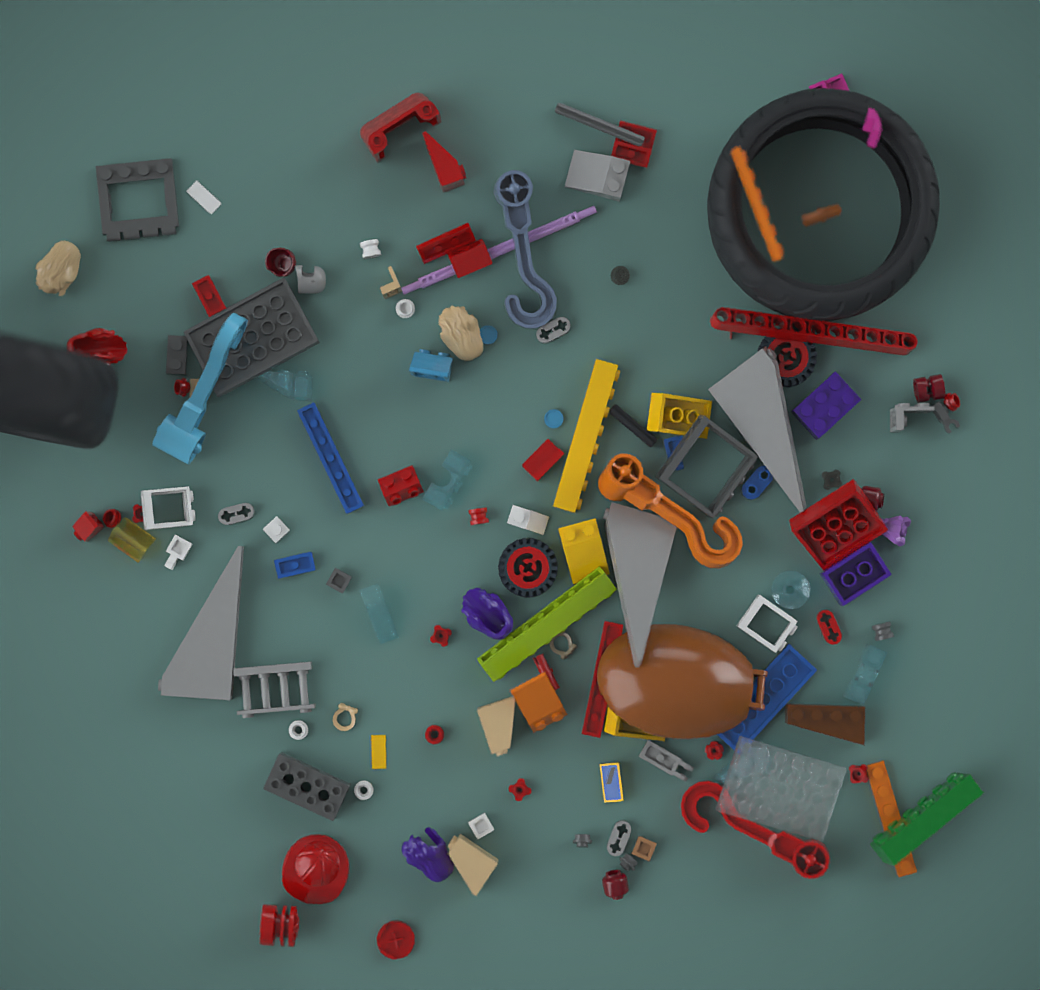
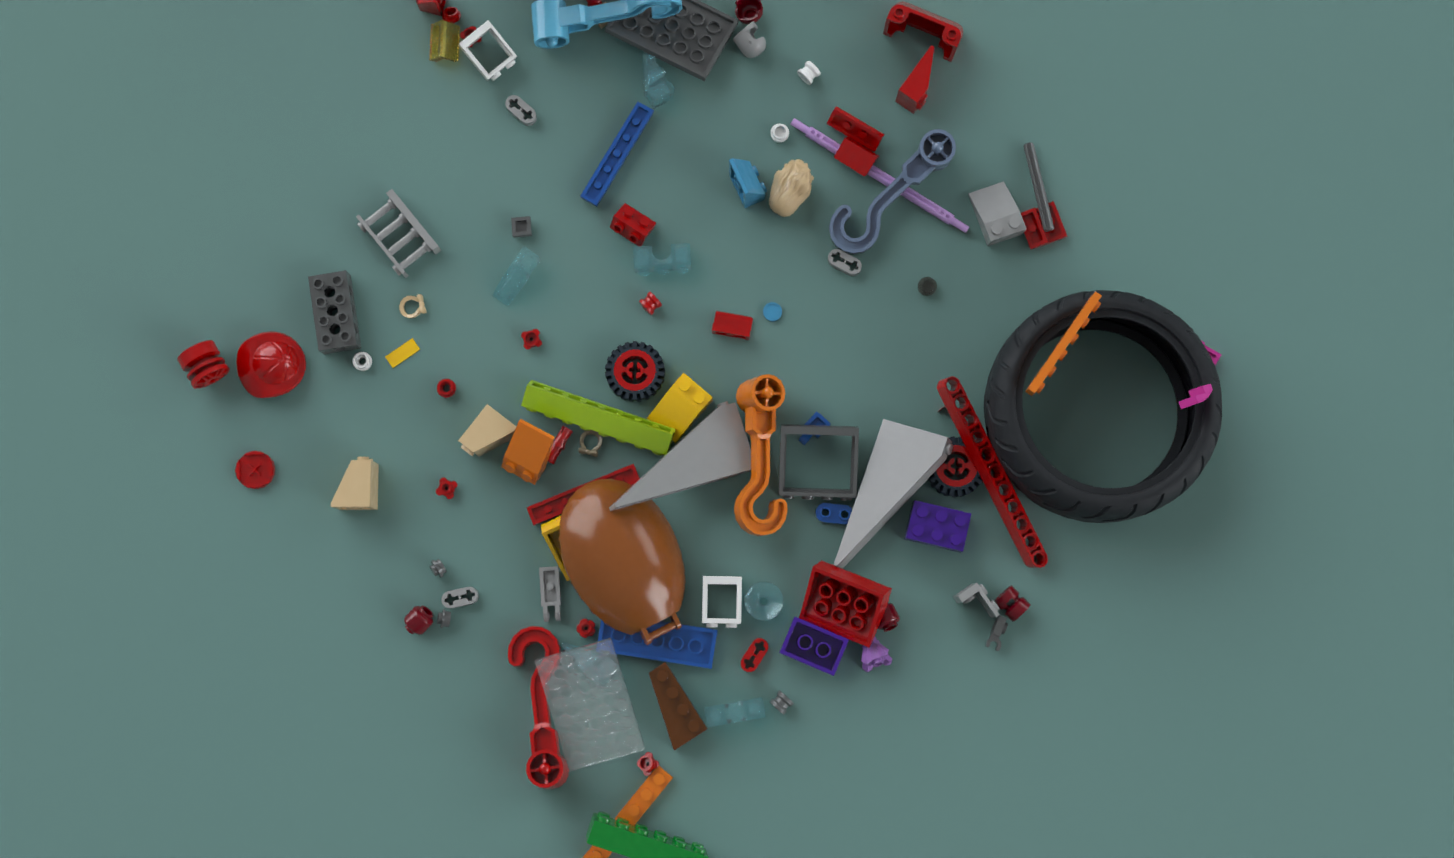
camera: 55 degrees right, 5 degrees down
(178, 549) = (461, 83): white plate -> none
(208, 652) = (400, 159): light grey slope -> none
(276, 529) = (529, 150): white plate -> none
(292, 732) = (375, 270): white plate -> none
(295, 565) = (510, 183): blue plate -> none
(392, 288) = (788, 108): tan panel -> none
(431, 860) = (337, 447): dark purple hair -> none
(481, 826) = (395, 476): white plate -> none
(487, 613) = (574, 362): dark purple hair -> none
(488, 334) = (804, 213): dark azure piece -> none
(528, 519) = (675, 346): white slope -> none
(585, 436) = (776, 345): yellow brick -> none
(611, 782) = (503, 560): slope -> none
(632, 425) = (811, 379): black axle -> none
(644, 848) = (465, 624): medium nougat plate -> none
(676, 413) = (845, 408): yellow slope -> none
(821, 215) = (1093, 404): dark orange axle -> none
(836, 482) = (884, 573): clear smoke plate -> none
(952, 401) = (1014, 630): red plate -> none

